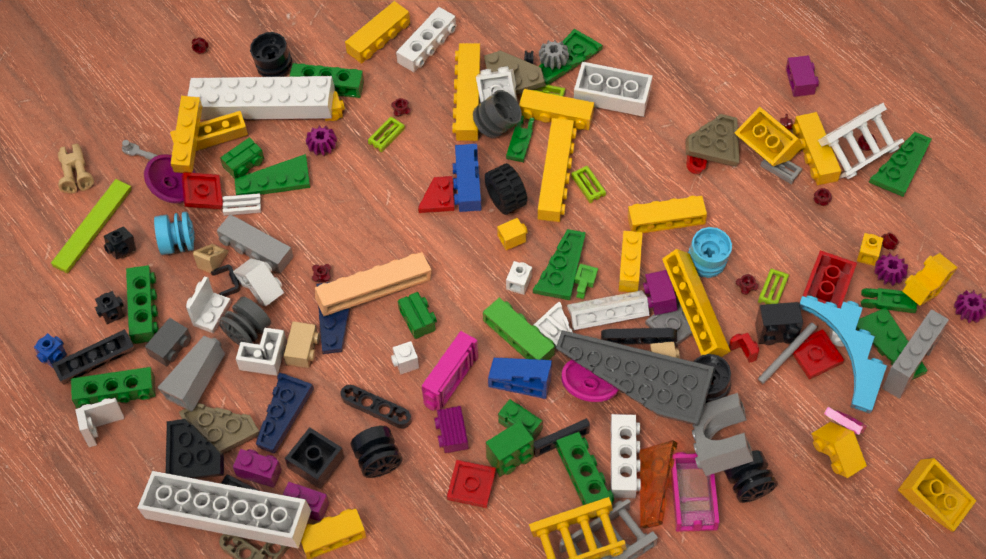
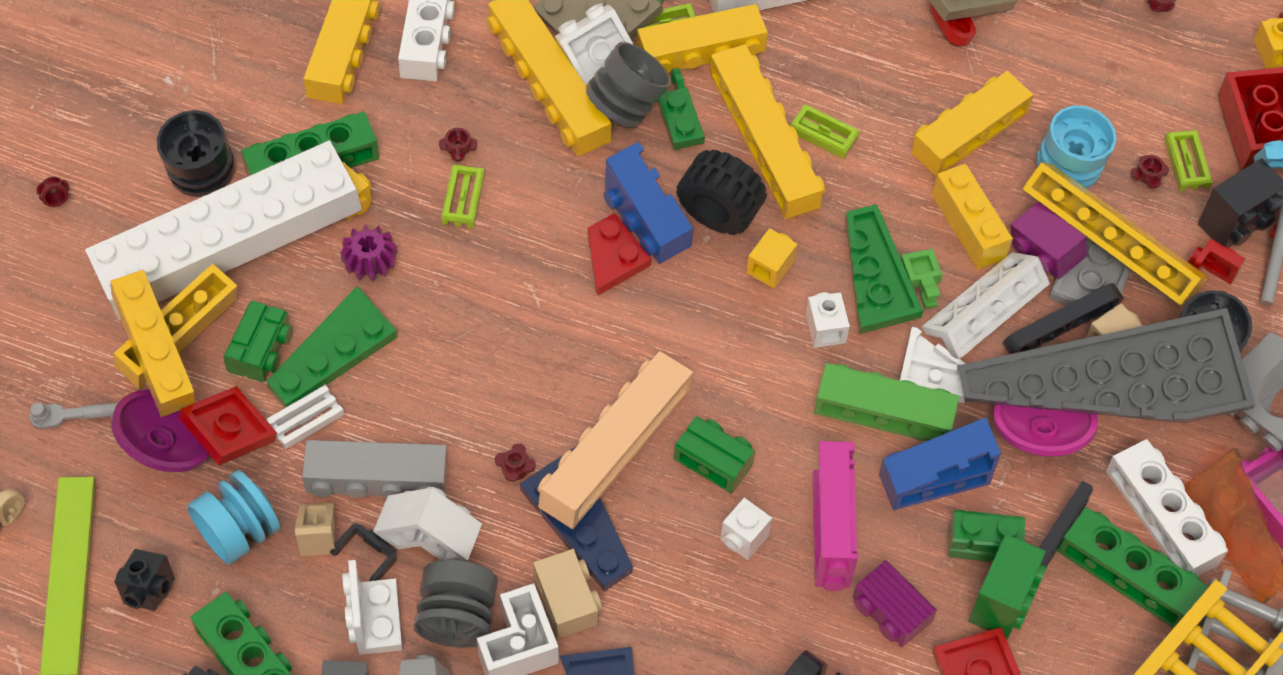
camera: 35 degrees left, 0 degrees up
(374, 408) = (749, 635): black beam -> none

